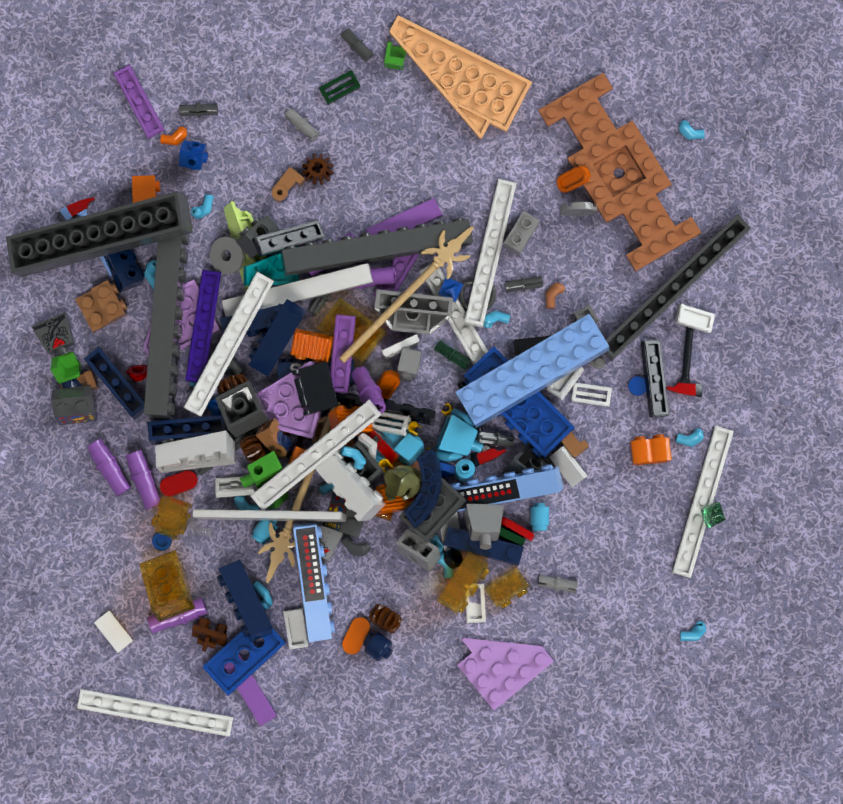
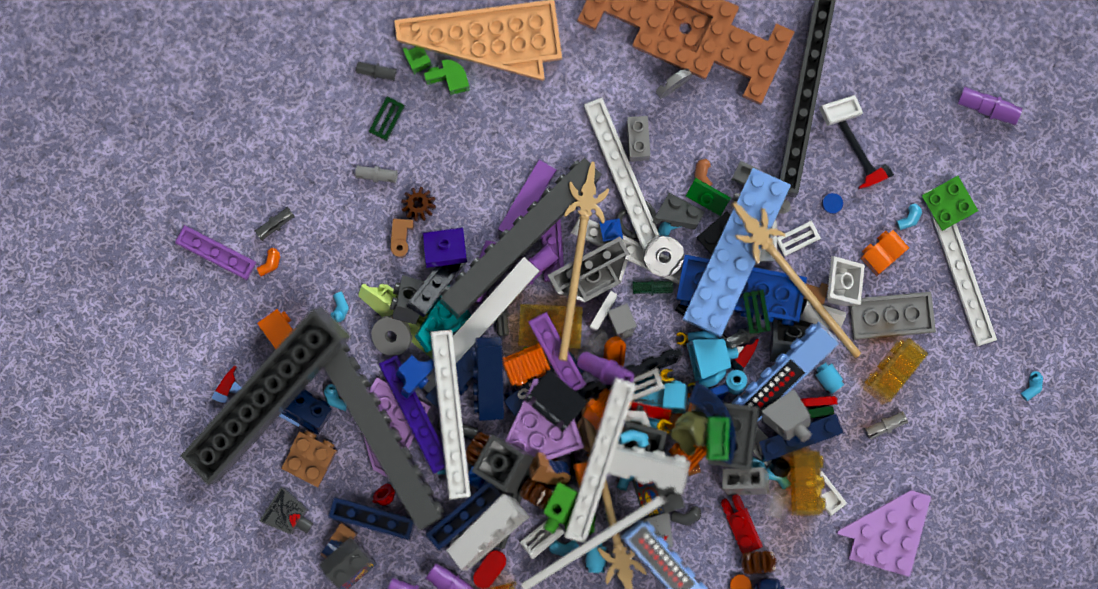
camera: 35 degrees left, 0 degrees up
(65, 367) = (316, 536): bright green panel -> none
(193, 155) = (298, 267): blue brick -> none
(222, 296) = (414, 375): none -> blue brick
(314, 215) = (444, 247): none -> dark purple plate
(393, 581) = (741, 525): none -> red hinge
(413, 85) = (453, 73): none -> bright green brick
(416, 500) = (717, 438): none -> green plate
(476, 325) = (652, 253): none -> tile
(506, 588) = (845, 460): clear yellow bracket -> none
(512, 311) = (678, 213): none -> dark grey wing
(523, 284) = (670, 182): dark grey axle -> none
(523, 412) = (753, 294): none -> dark green tile
(544, 314) = (708, 197): none -> green plate
(557, 369) = (760, 236): none -> tan piece
(573, 179) = (650, 60): orange tile -> none
(592, 544) = (895, 370): none -> clear yellow brick
(601, 451) = (845, 282): none -> white slope
(622, 503) = (893, 316): none -> light grey tile
(654, 378) = (843, 186): tile -> none
(713, 514) = (978, 271): clear green tile -> none
(728, 447) = (950, 203): none -> bright green hinge
(814, 394) = (990, 106): none -> medium lavender piece

